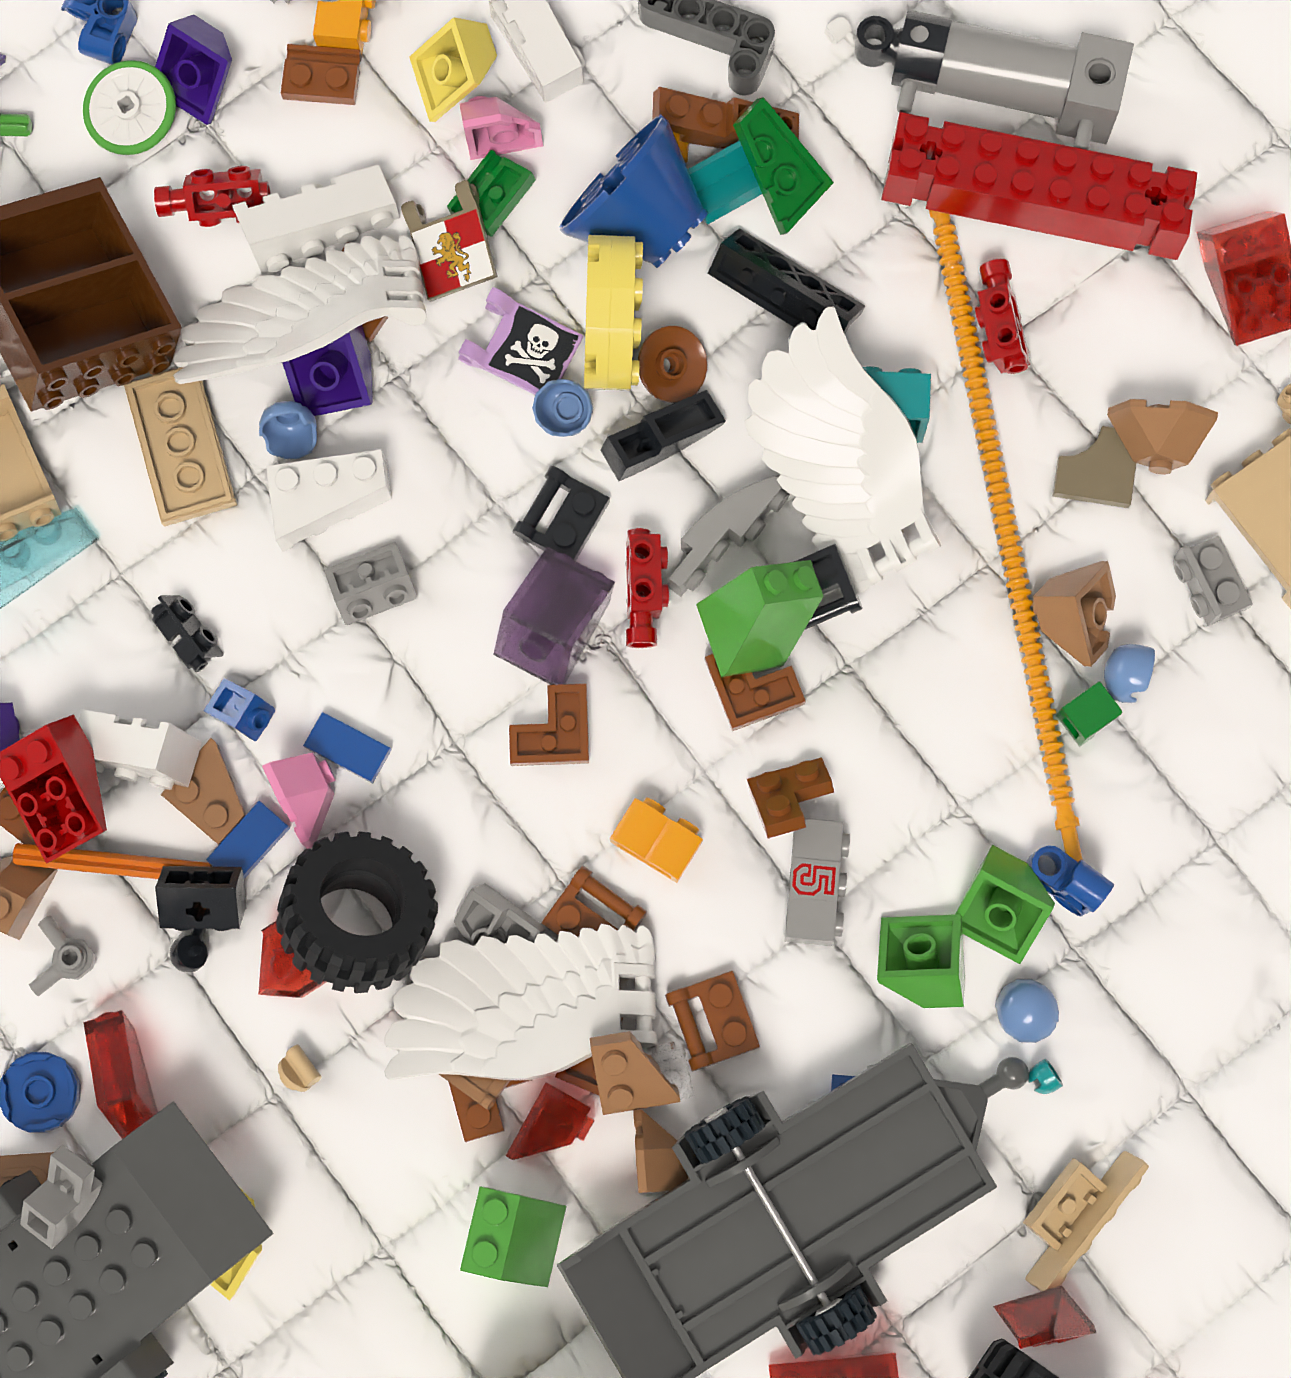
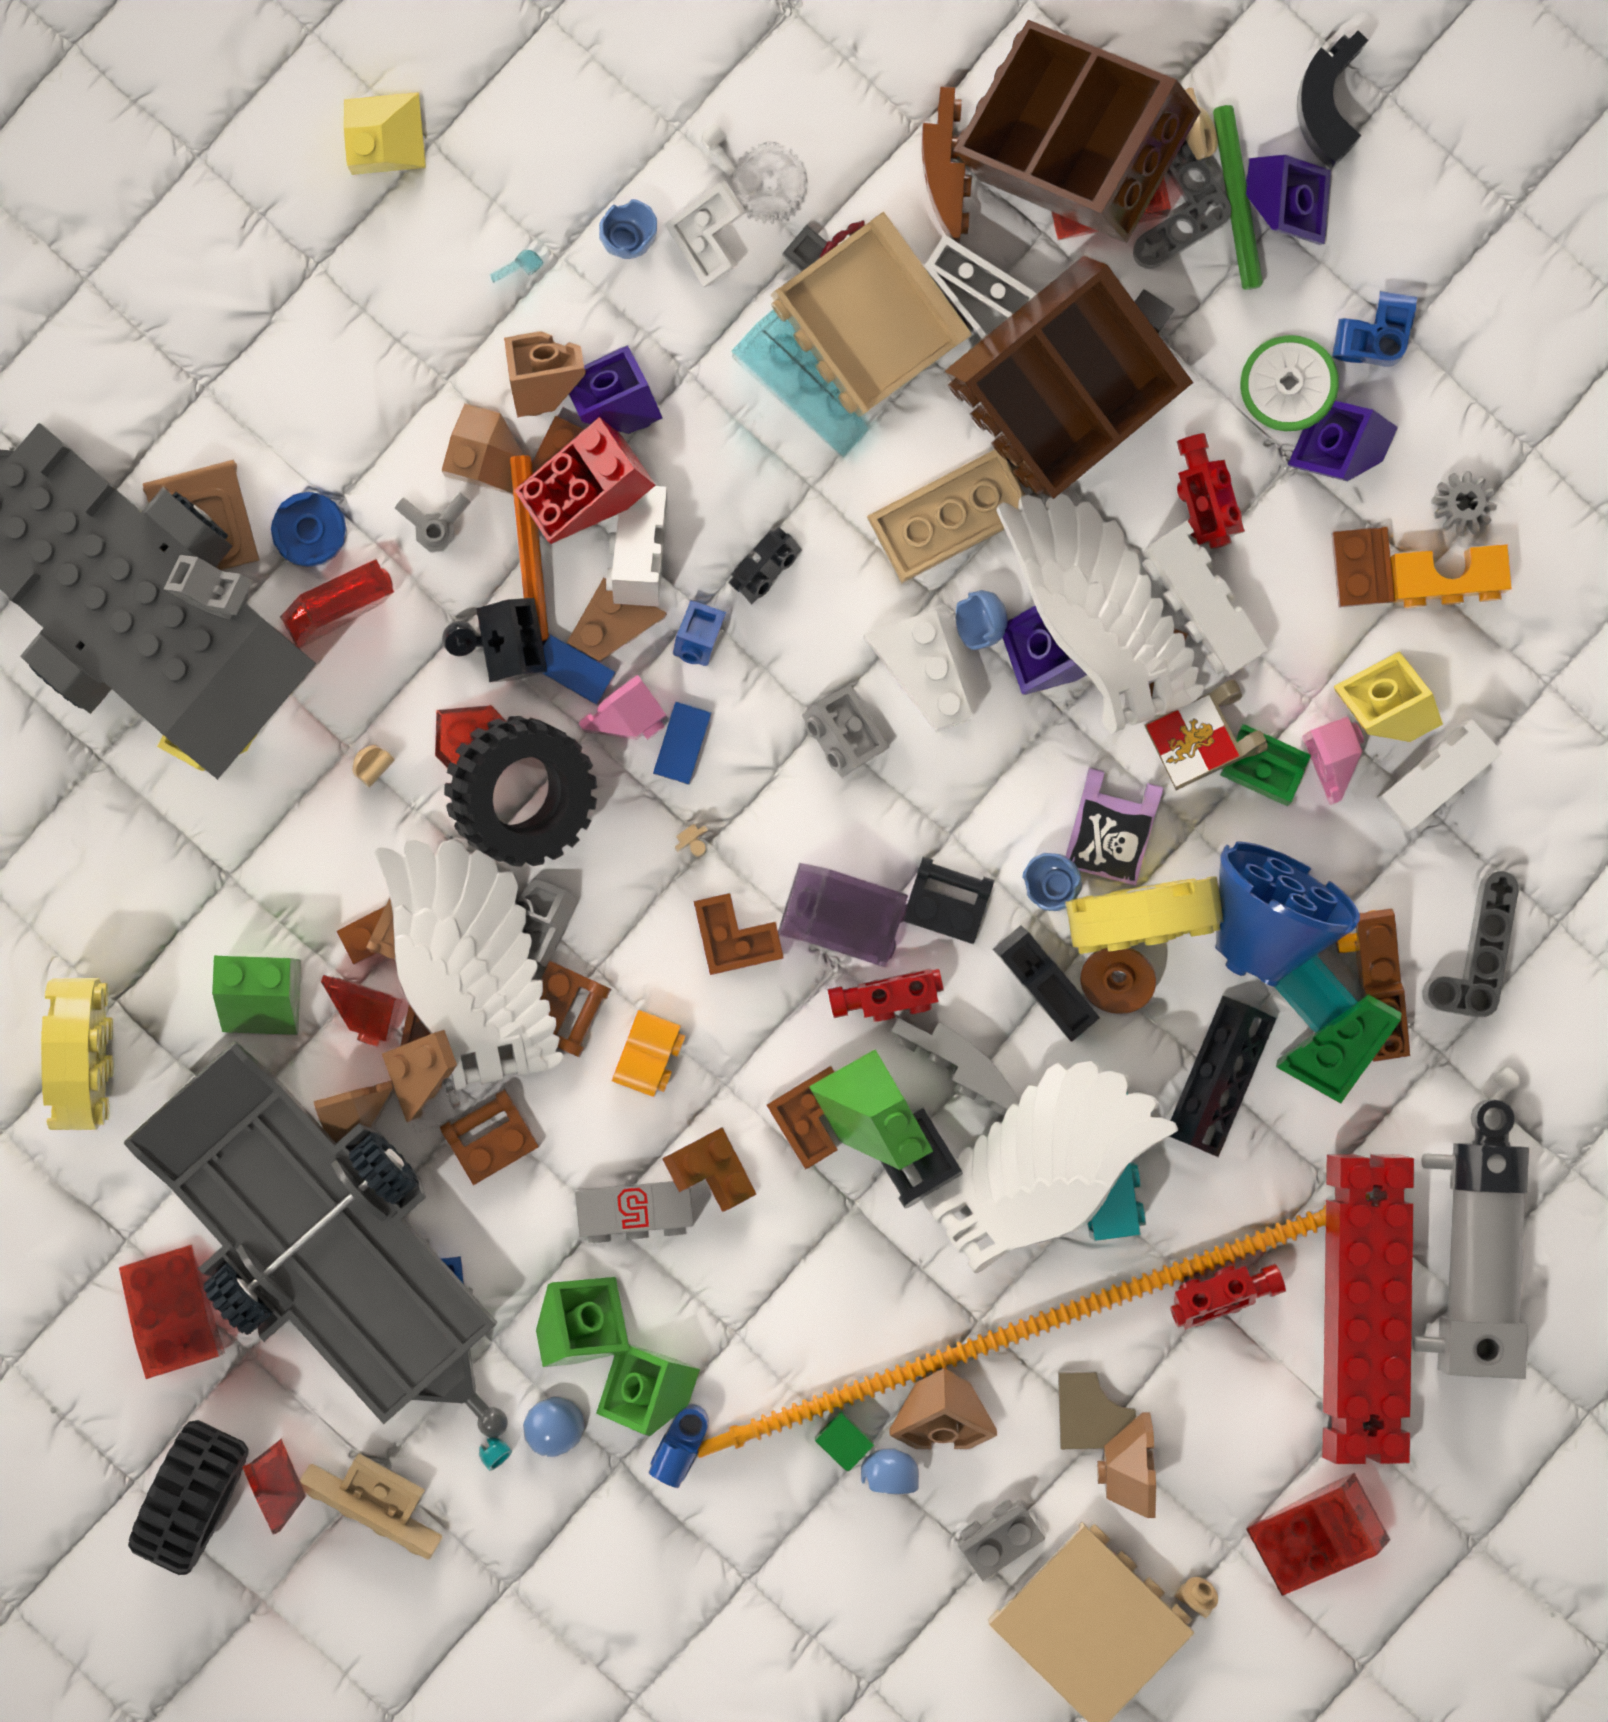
camera: 70 degrees right, 10 degrees up
(447, 753) = (690, 837): none -> tan plate

